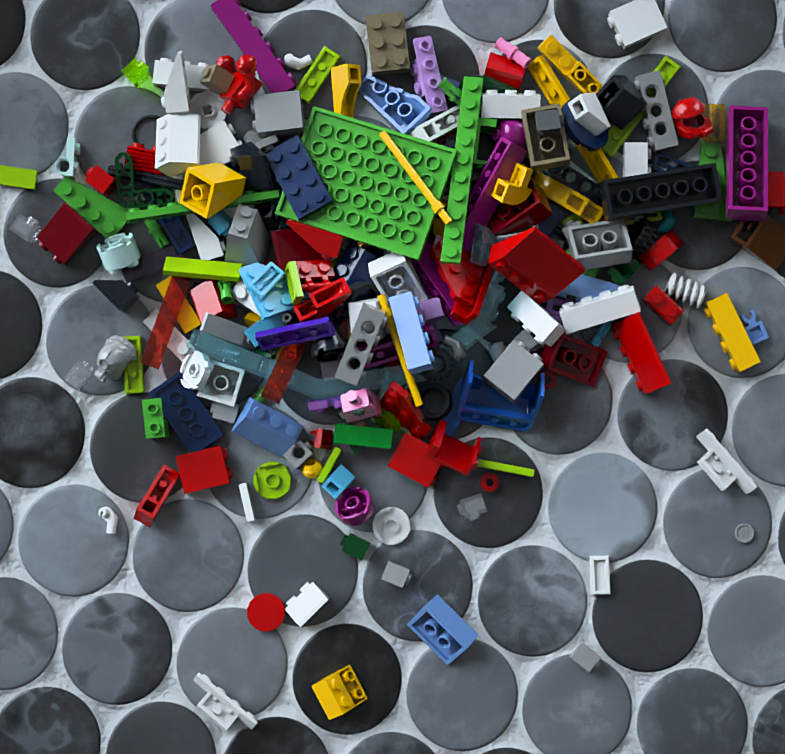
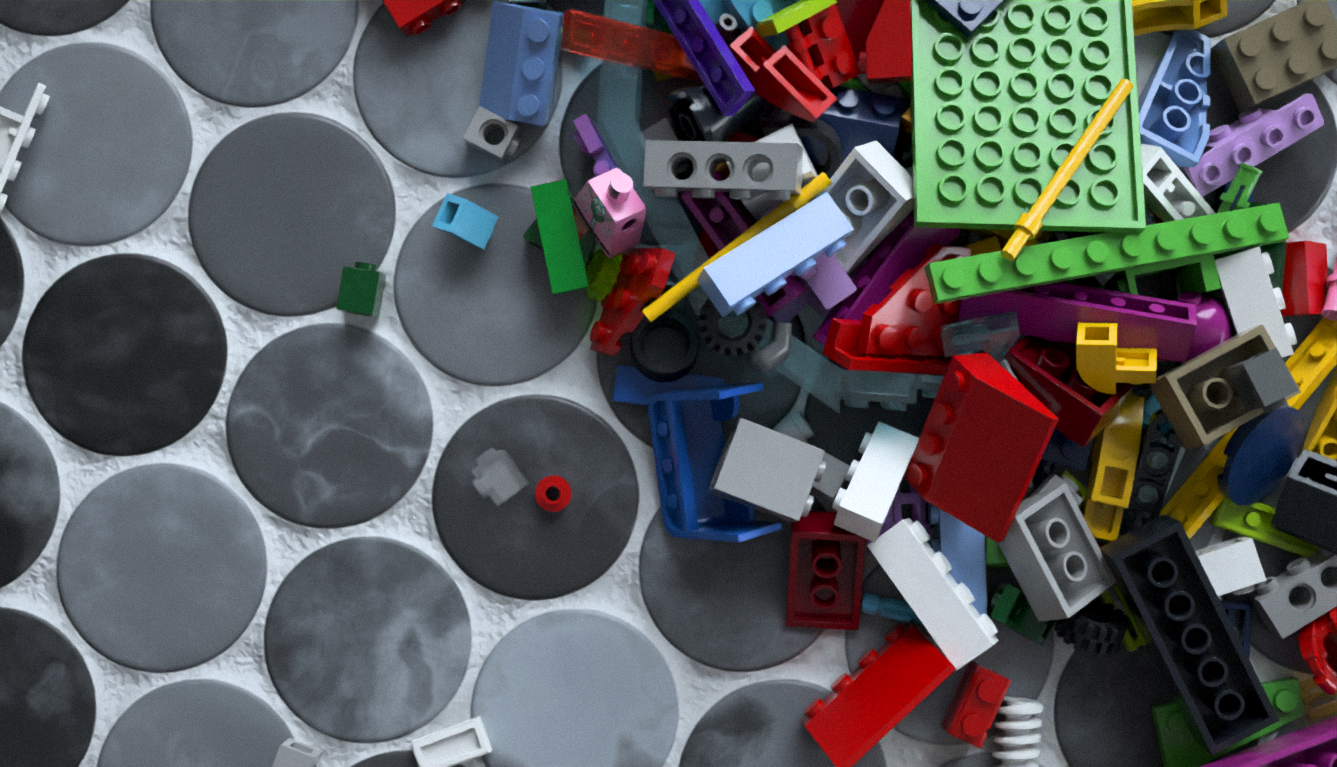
camera: 75 degrees right, 0 degrees up
(247, 503) = (377, 73): white tile -> none
(266, 612) = (195, 172): red tile -> none
(272, 480) = (432, 107): lime tile -> none
(306, 603) = (228, 236): white slope -> none
(311, 468) = (474, 168): yellow piece -> none
(323, 438) = (533, 169): red tile -> none
(329, 465) = (492, 197): lime tile -> none
(339, 692) = (92, 348): yellow slope -> none
(354, 506) = (429, 264): magenta cylinder -> none
(391, 525) = (419, 343): white tile -> none
(396, 574) = (333, 380): light grey brick -> none
(411, 461) = (549, 351): red panel -> none
(442, 629) = (262, 496): medium blue slope -> none
(452, 451) = (585, 407): red panel -> none
(505, 468) = (587, 513): lime tile -> none
(553, 379) = (776, 547): red plate -> none
(589, 113) = (1289, 455): white slope -> none
(661, 250) = (1075, 668): red brick -> none
(667, 223) = (1127, 663): teal arm -> none

